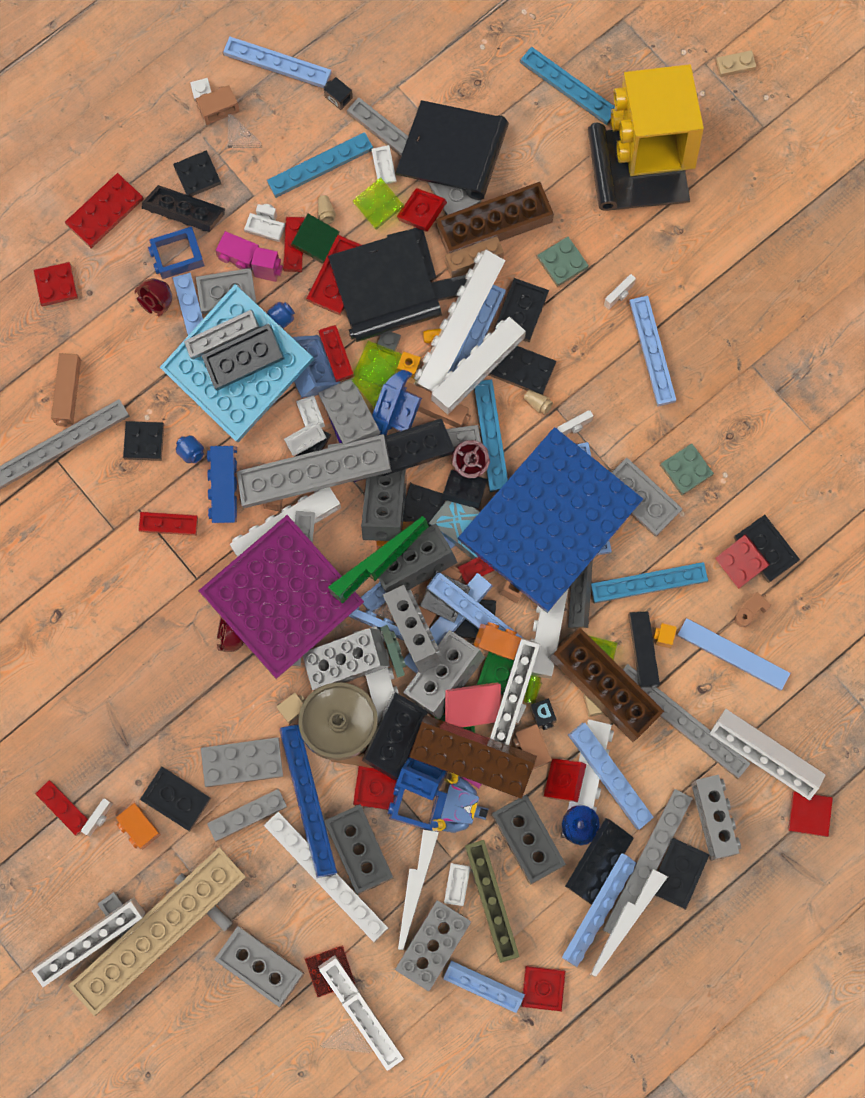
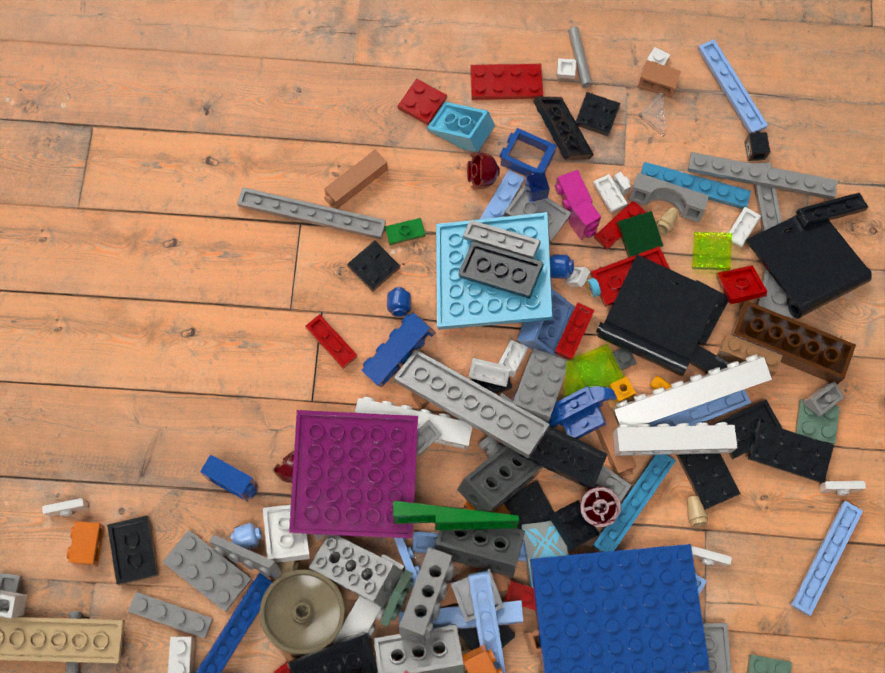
camera: 40 degrees right, 5 degrees down
(62, 807) = (51, 475): red plate -> none
(105, 275) = (462, 125): none -> medium azure slope
(140, 159) = (566, 68): none -> white plate
(141, 140) = (580, 57): none -> light grey piece
(141, 394) = (405, 231): none -> green plate
(195, 684) = (229, 478): none -> blue window
(207, 271) = (537, 186): none -> clear blue brick
(246, 713) = (247, 536): none -> light blue head
(263, 723) = (248, 558): none -> light grey plate
(274, 692) = (279, 542): none -> white plate
(301, 311) = (578, 278): none -> white plate
(319, 309) = (593, 287): none -> medium azure tile
(328, 182) = (688, 202): none -> light grey arch
(356, 489) = (490, 445): none -> light grey wheel
(362, 113) = (762, 175): none -> light grey plate
(435, 94) = (832, 209): none -> black tile
(552, 240) = (824, 398): none -> light grey slope
(564, 300) = (790, 452): none -> black plate

